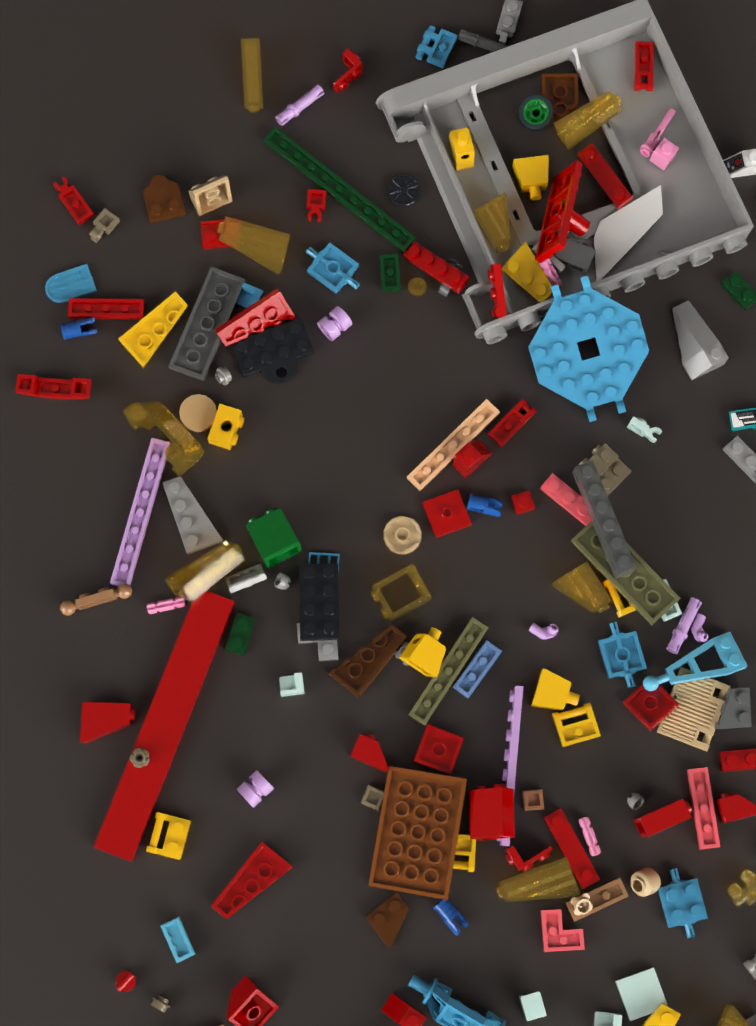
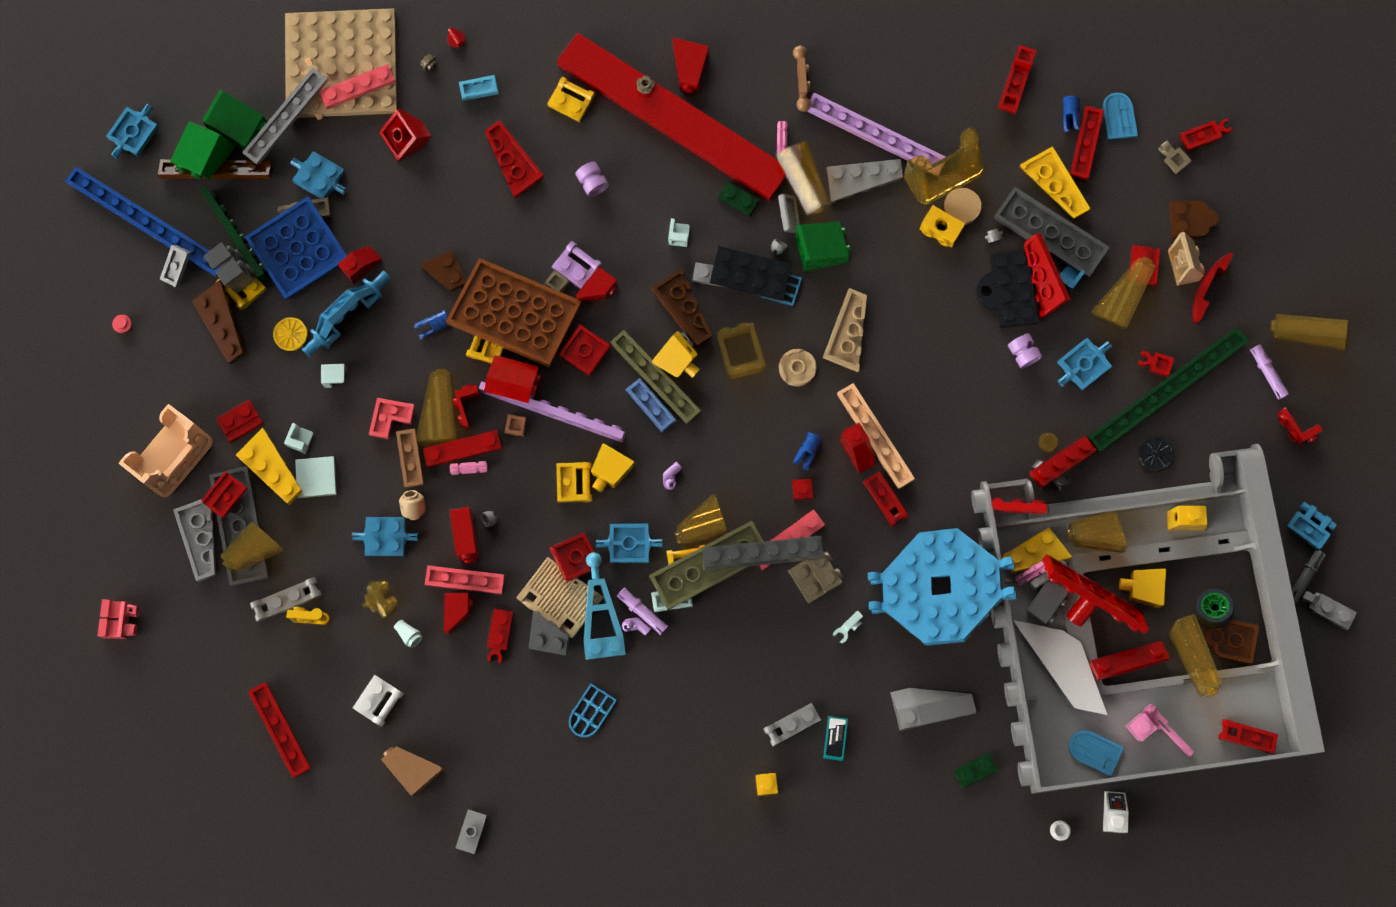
camera: 110 degrees right, 0 degrees up
(251, 176) = (1200, 305): none -> red slope
(356, 784) = (571, 269): none -> lavender plate
(364, 494) = (846, 337): none -> tan wing
(390, 273) = (1068, 418): dark green plate -> none
(447, 513) = (808, 414): red plate -> none
(585, 908) = (403, 439): tan plate -> none
(694, 191) = (1095, 751): none -> dark azure window

